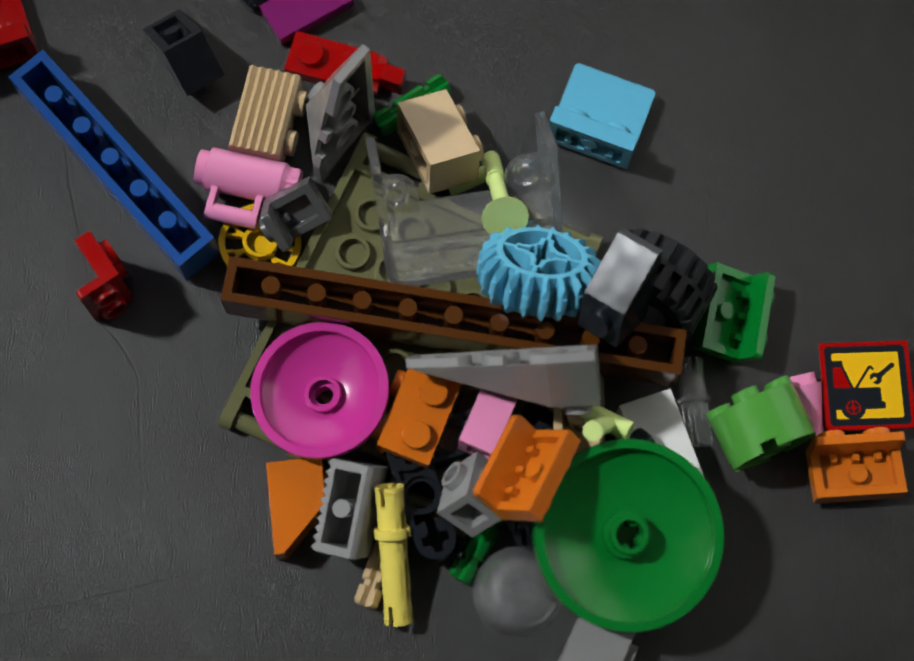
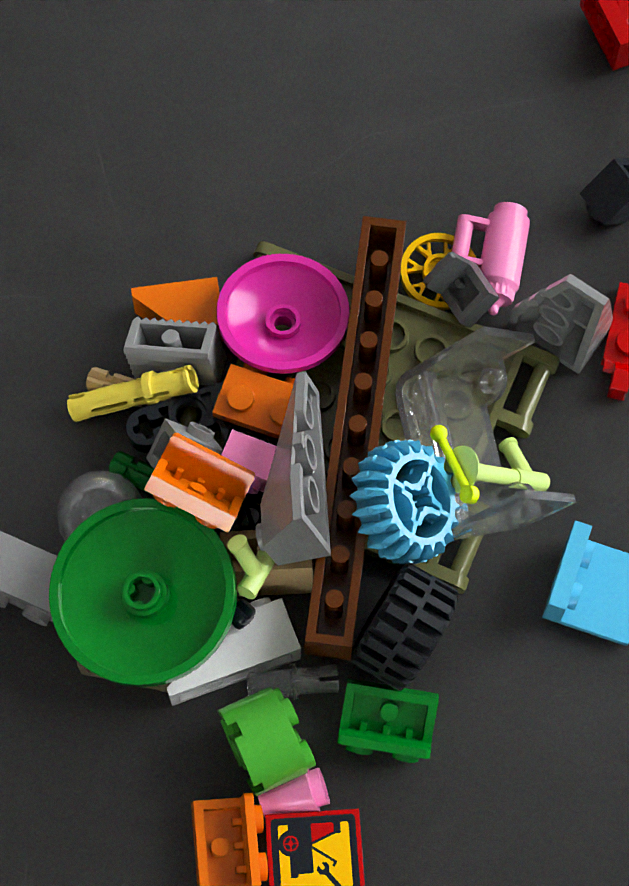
camera: 90 degrees right, 5 degrees down
(108, 293) = (391, 132): red bracket -> none
(115, 165) = (501, 134): blue brick -> none
(268, 114) = (555, 256): tan brick -> none
(386, 118) = (593, 404): green axle -> none
(439, 141) = (550, 421): tan brick -> none
(534, 209) = (468, 493): none -> neon yellow hinge
(620, 288) = (380, 566): slope -> none

